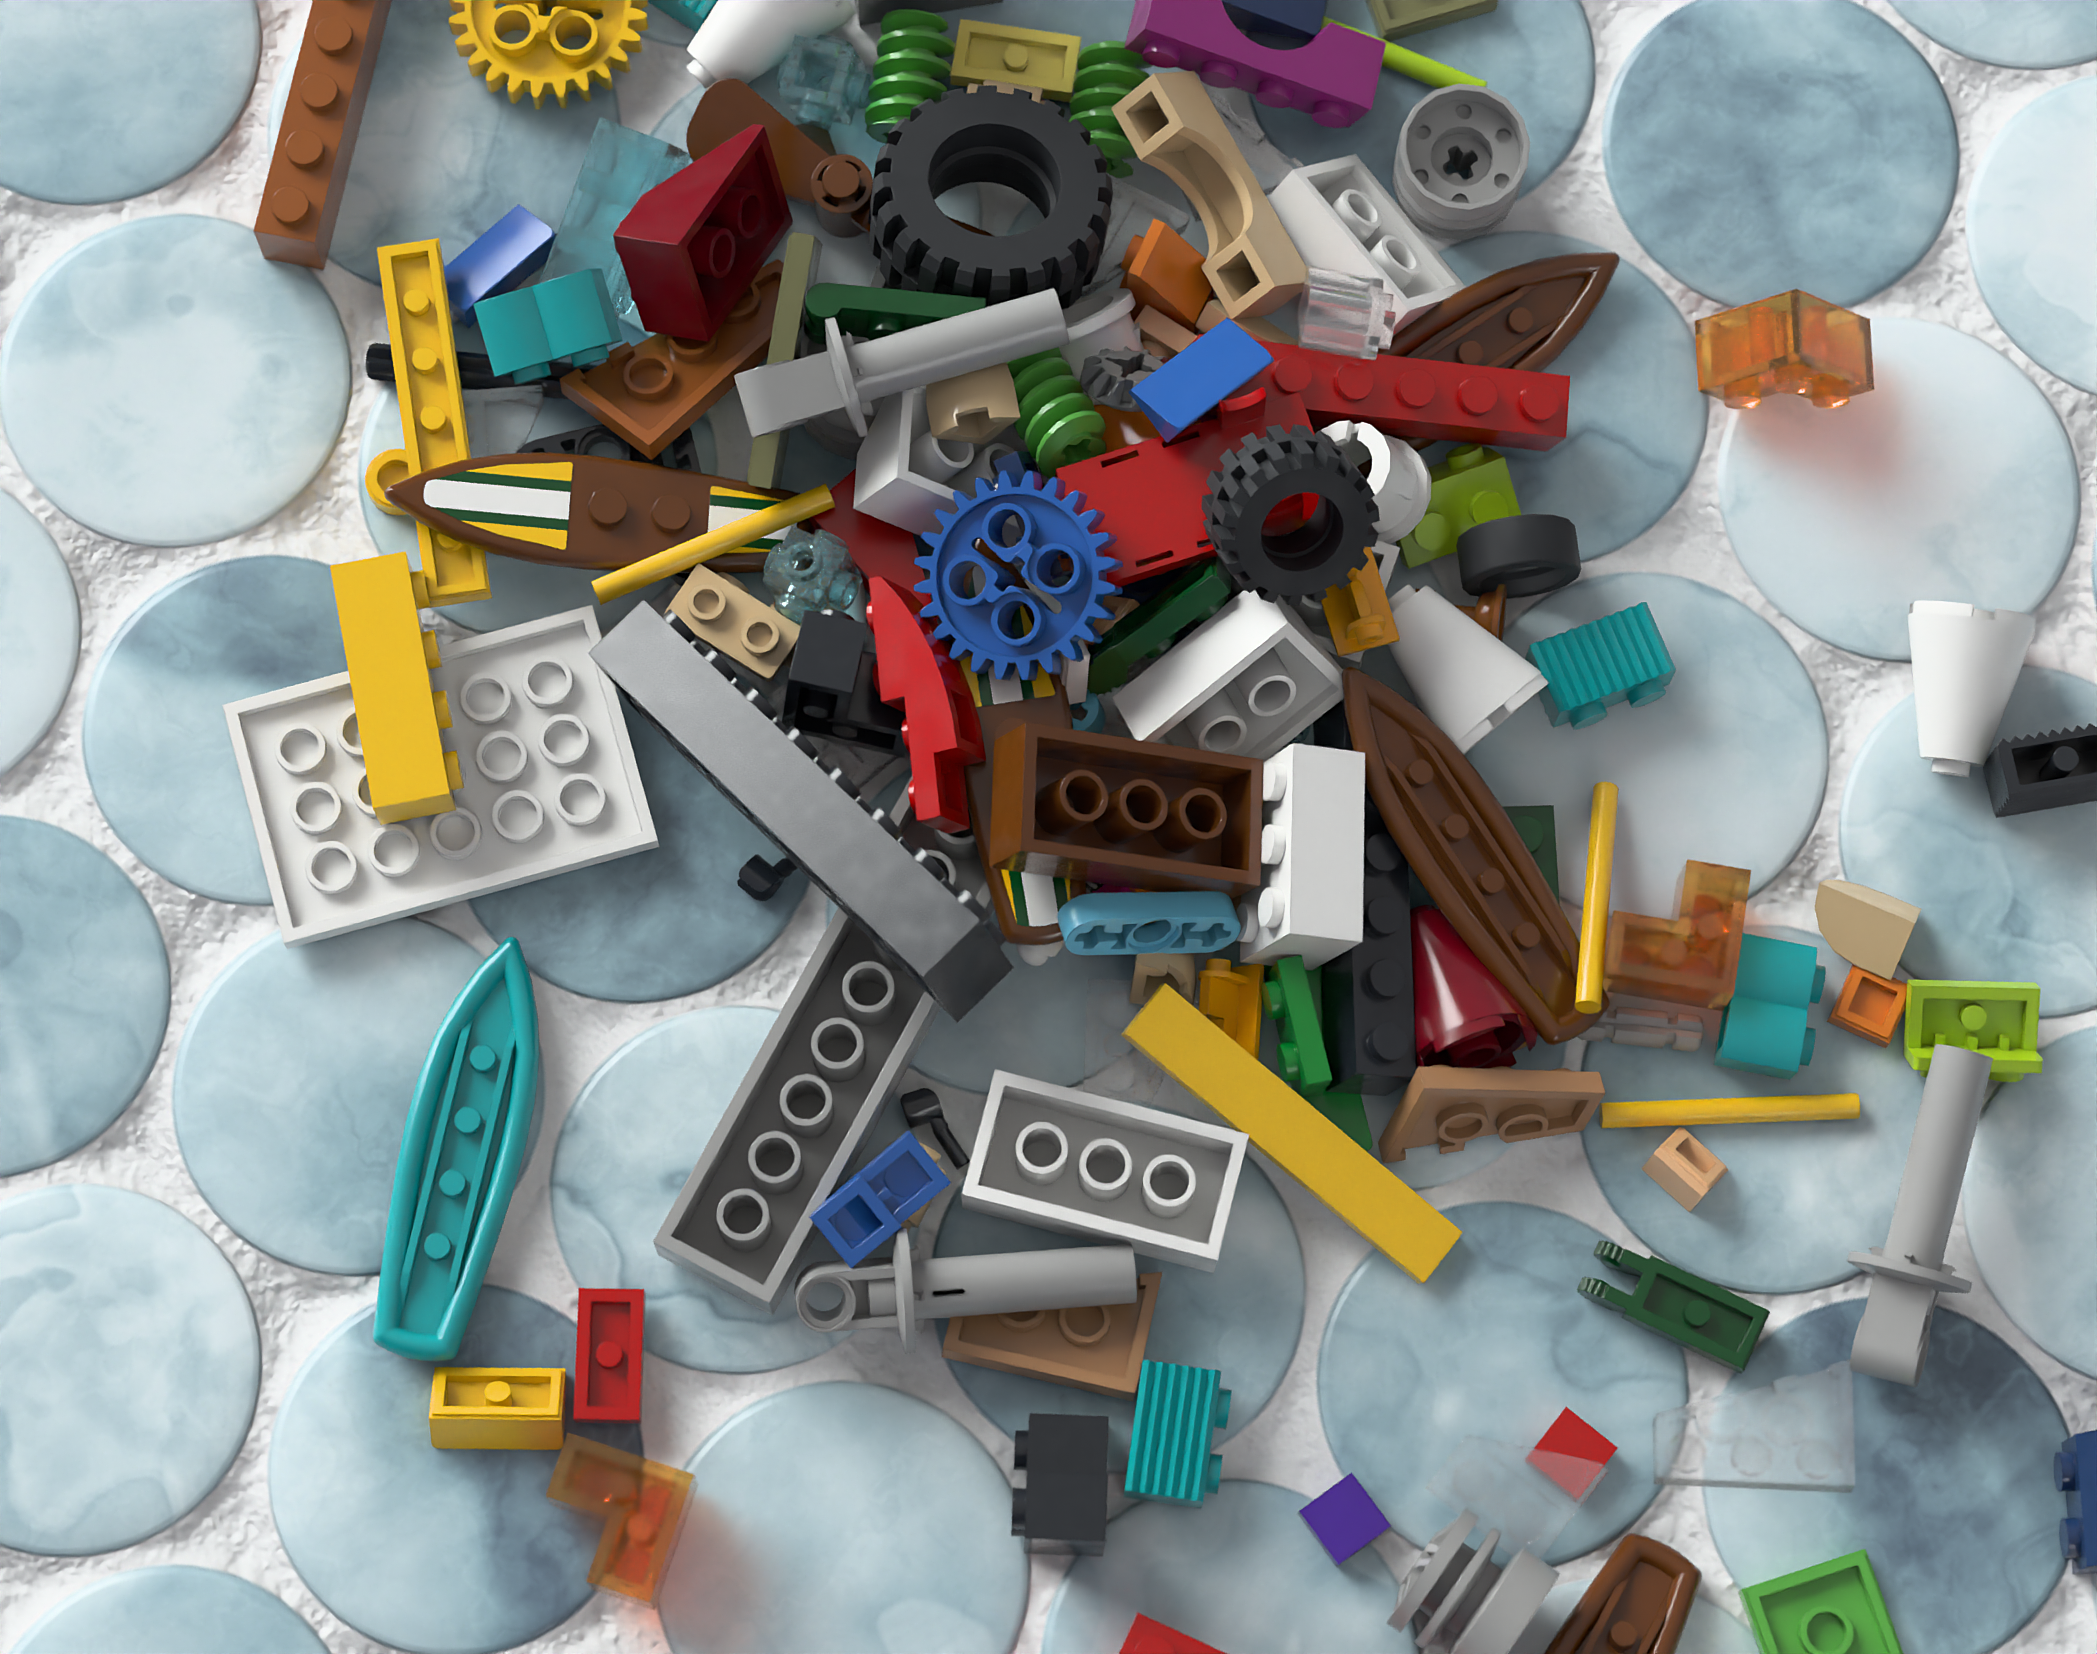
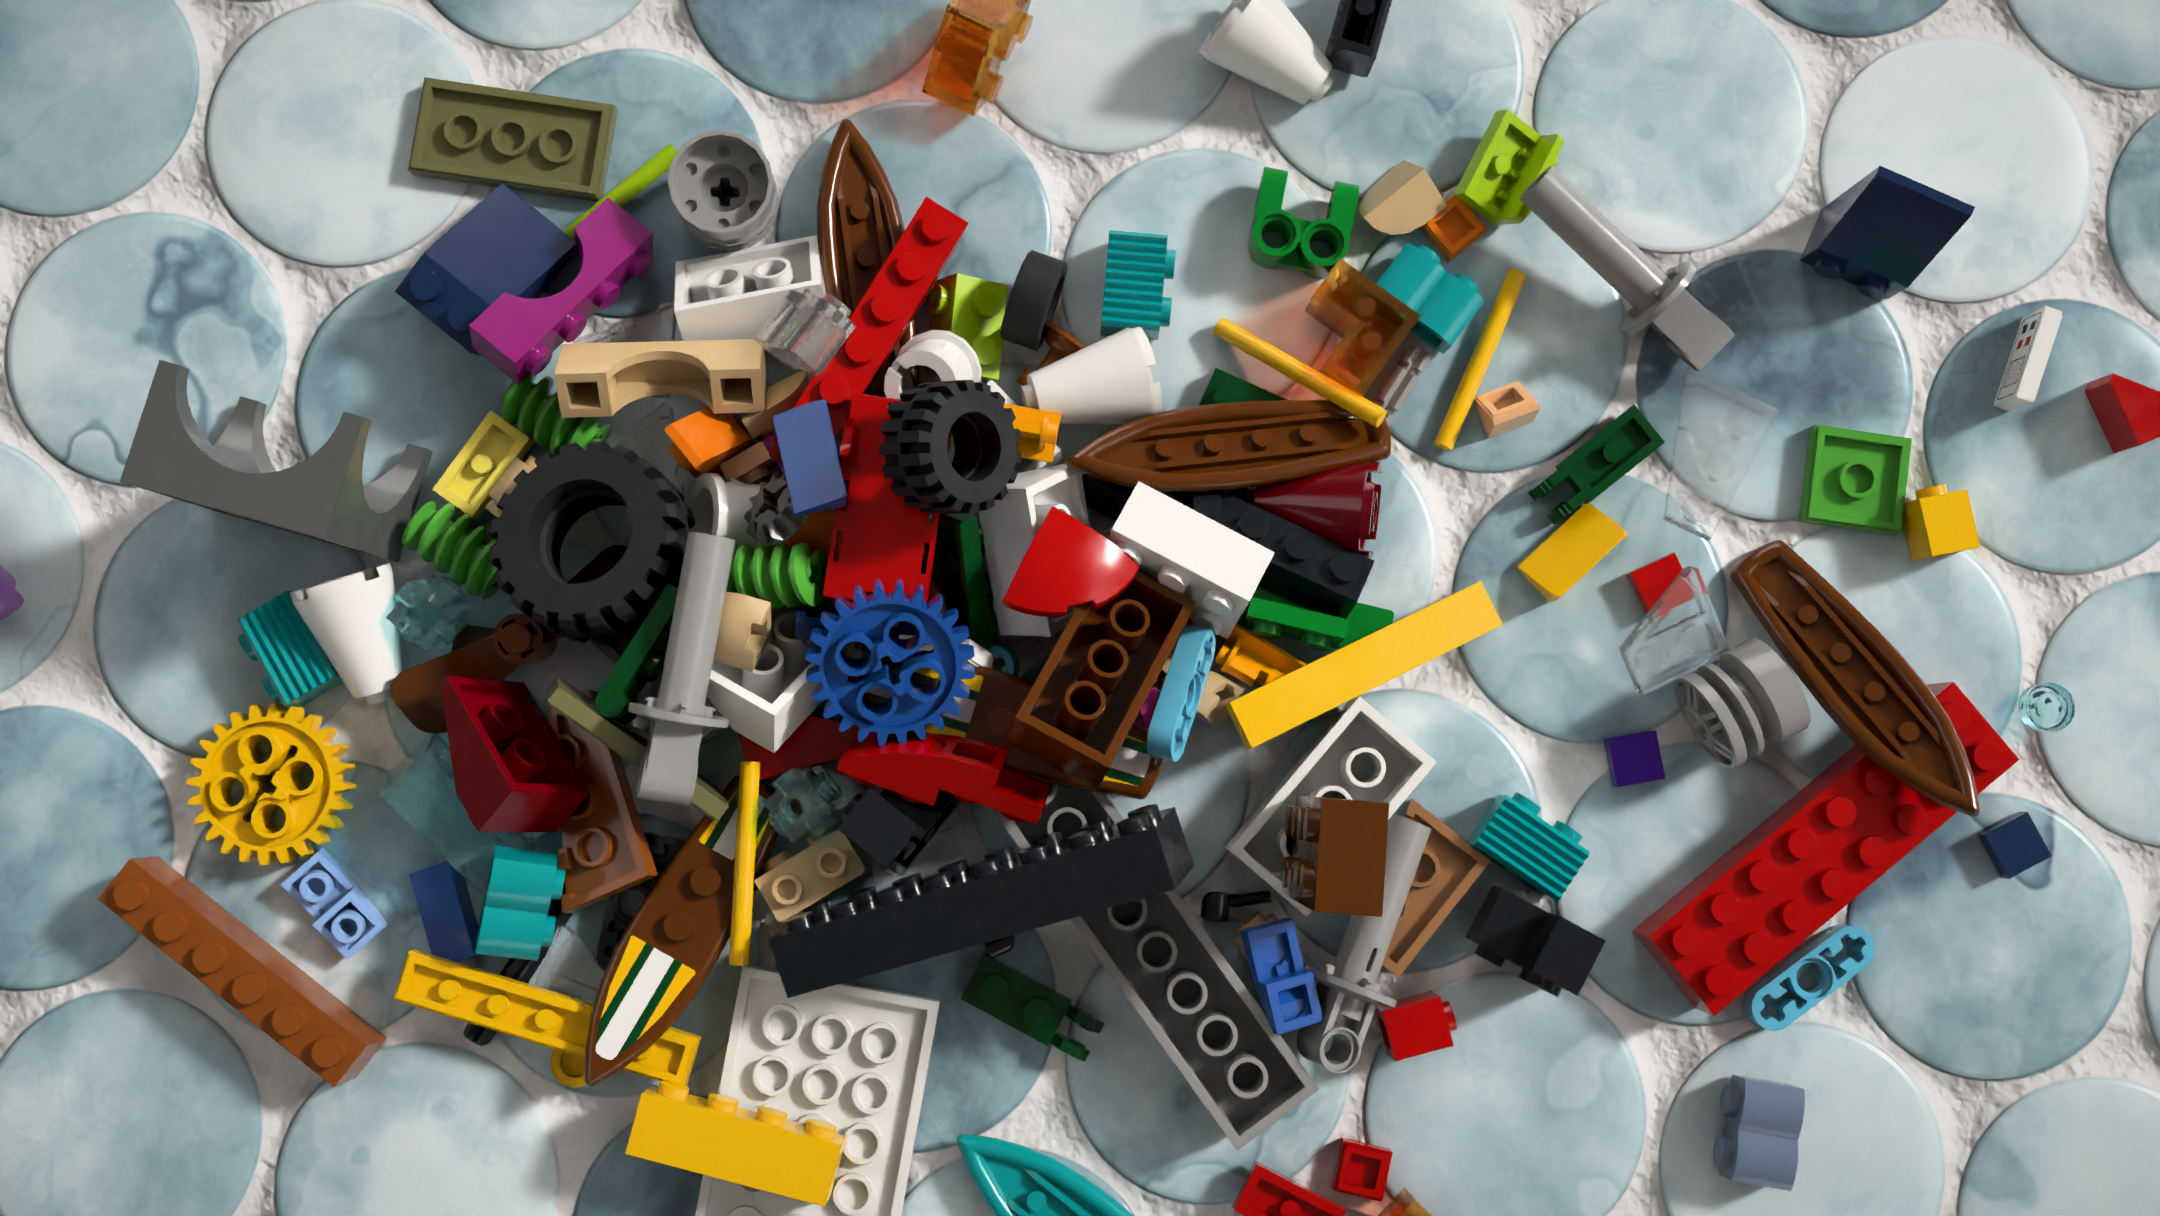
camera: 65 degrees left, 10 degrees up
(449, 142) = (336, 902): none -> light blue slope
(694, 1424) = (1361, 1169): none -> red tile
(700, 945) = (1027, 1005): none -> dark green hinge
(896, 1400) = (1416, 1025): none -> red brick
(1052, 1145) = (1337, 855): none -> reddish brown brick
(1225, 715) = (1068, 568): none -> red brick
(1466, 1103) = (1406, 509): medium nougat wing -> none
(1554, 1326) = (1571, 551): none -> yellow slope
(1762, 826) = (1297, 232): none -> green piece

